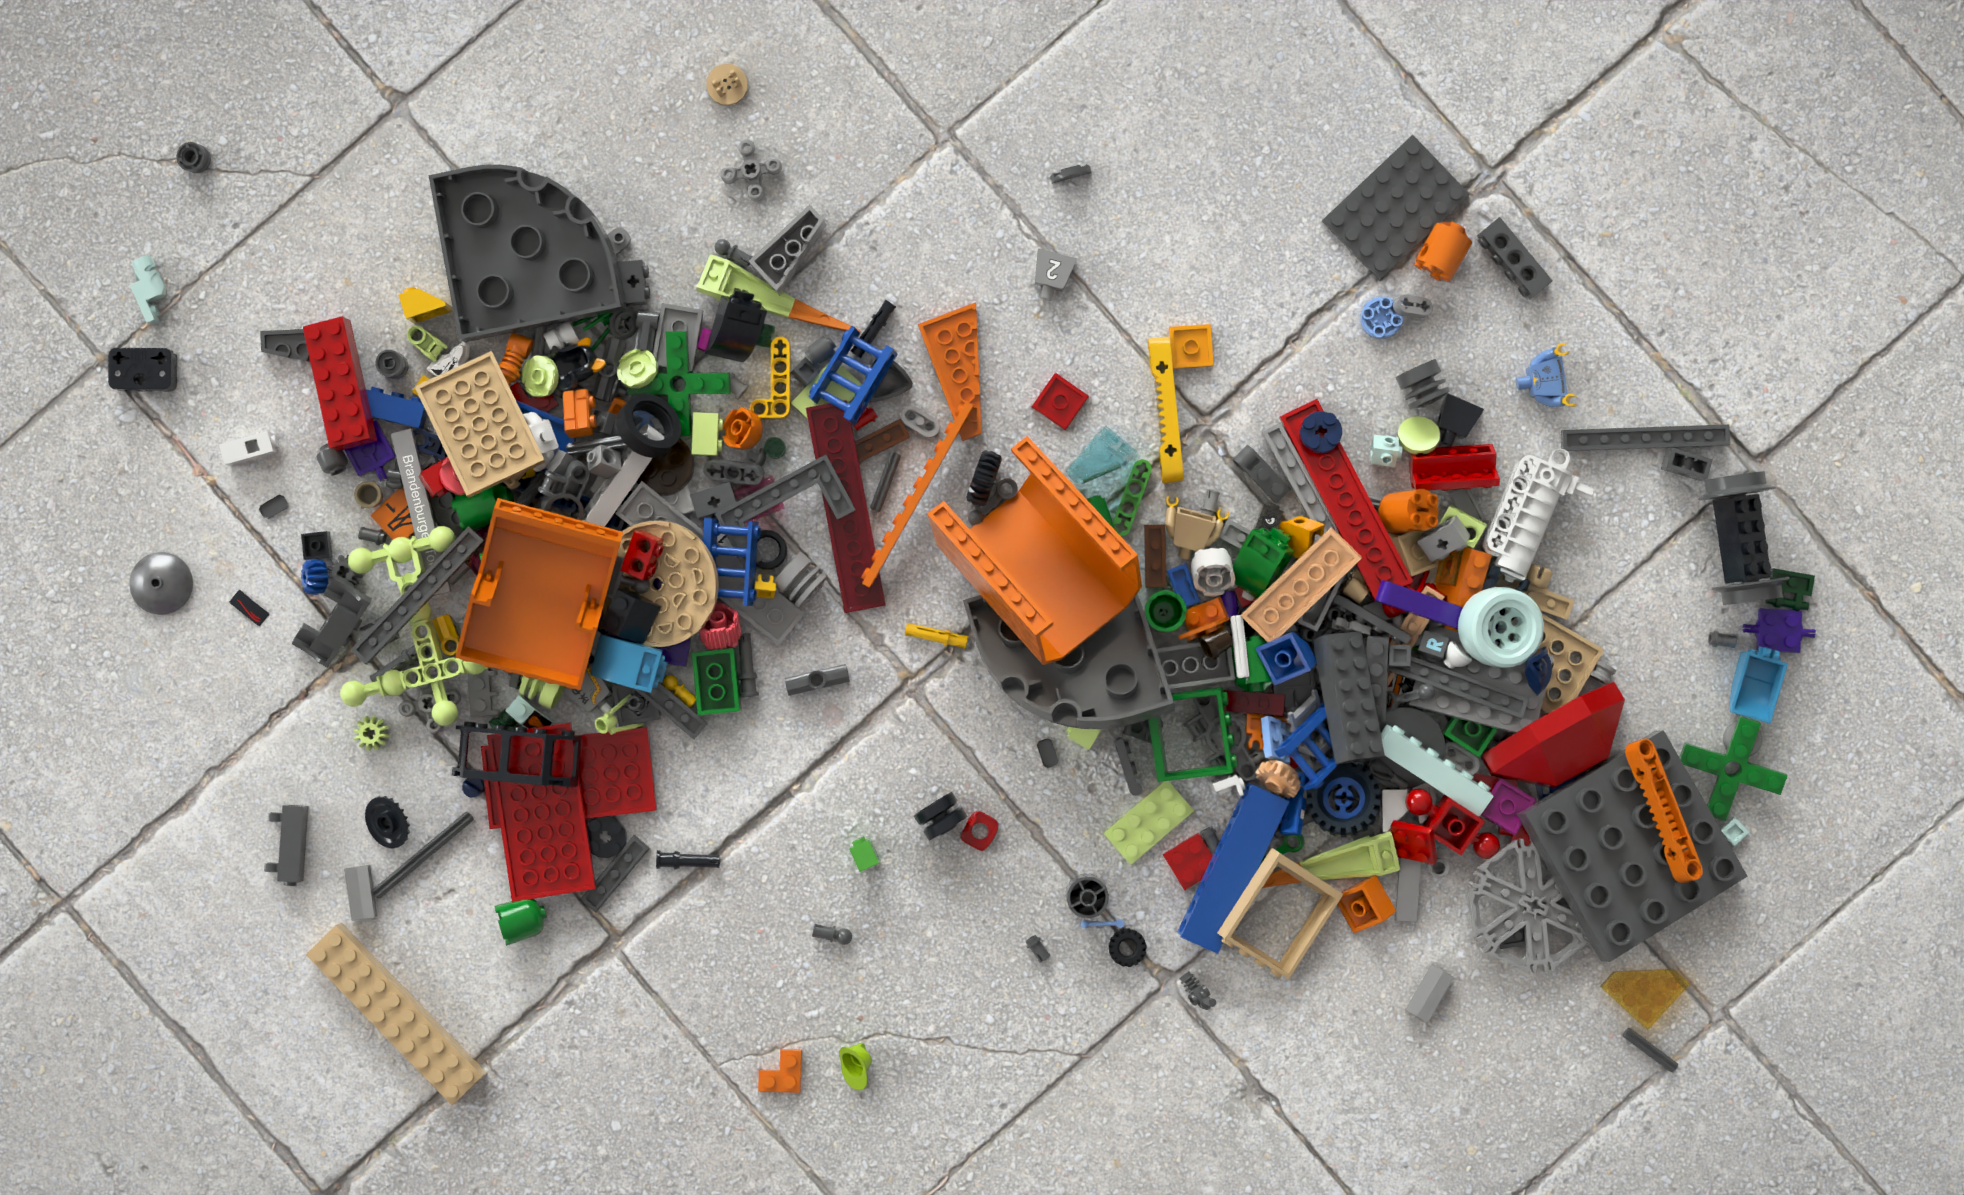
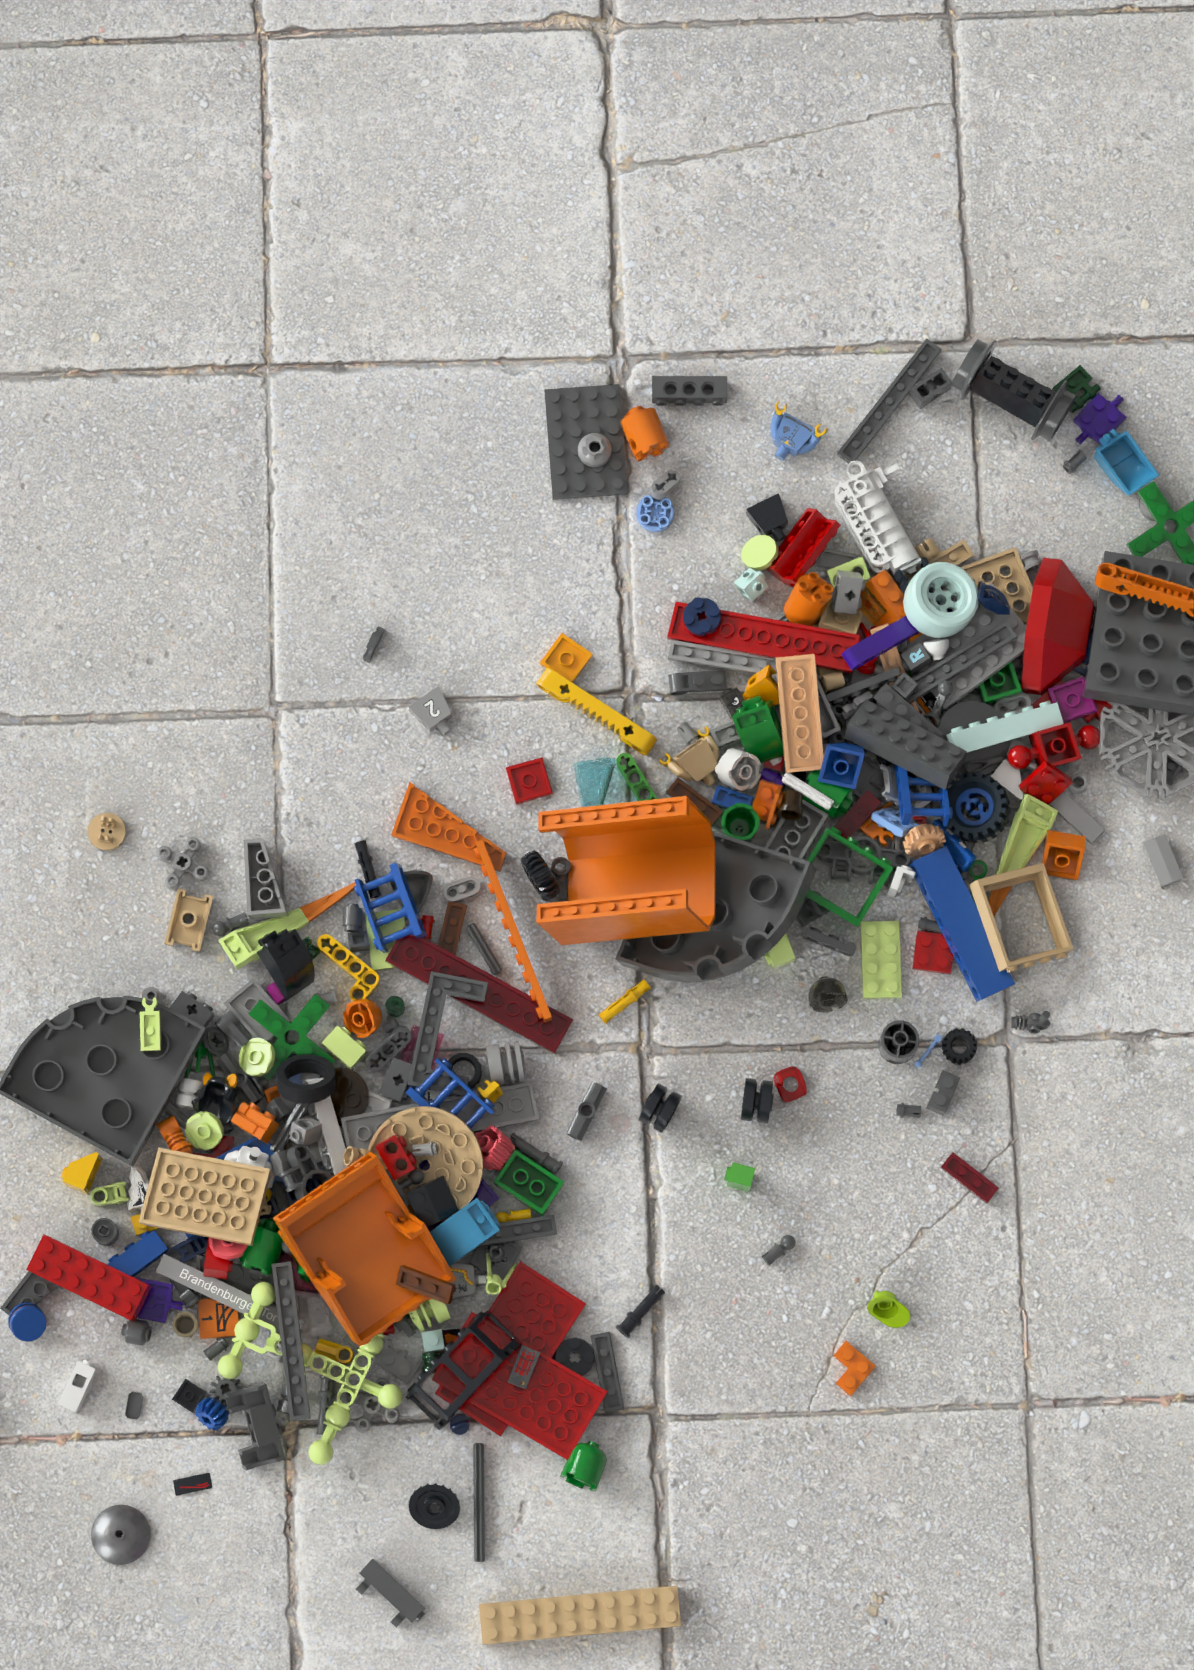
camera: 55 degrees left, 10 degrees down
(266, 362) = (27, 1322): none -> blue head
(360, 894) = (468, 1571): light grey piece -> none
(379, 734) = (357, 1459): yellowish green gear -> none
(551, 669) = (425, 1284): none -> reddish brown plate
(557, 804) = (523, 1367): none -> tile
(582, 260) = (150, 1027): none -> yellowish green plate
(616, 521) = (352, 1155): none -> tan wheel
(668, 575) = (426, 1149): none -> light grey pin
(723, 215) = (193, 933): none -> tan piece
(868, 741) = (657, 1106): none -> black wheel
(1022, 1044) = (969, 1177): none -> dark red plate
(1047, 753) = (773, 991): dark grey piece -> none
(1081, 800) = (827, 994): none -> clear smoke cylinder
(1083, 966) = (947, 1085): none -> dark grey brick
(1391, 231) = (598, 458): none -> light grey piece
(1422, 384) = (726, 520): dark grey wheel -> none

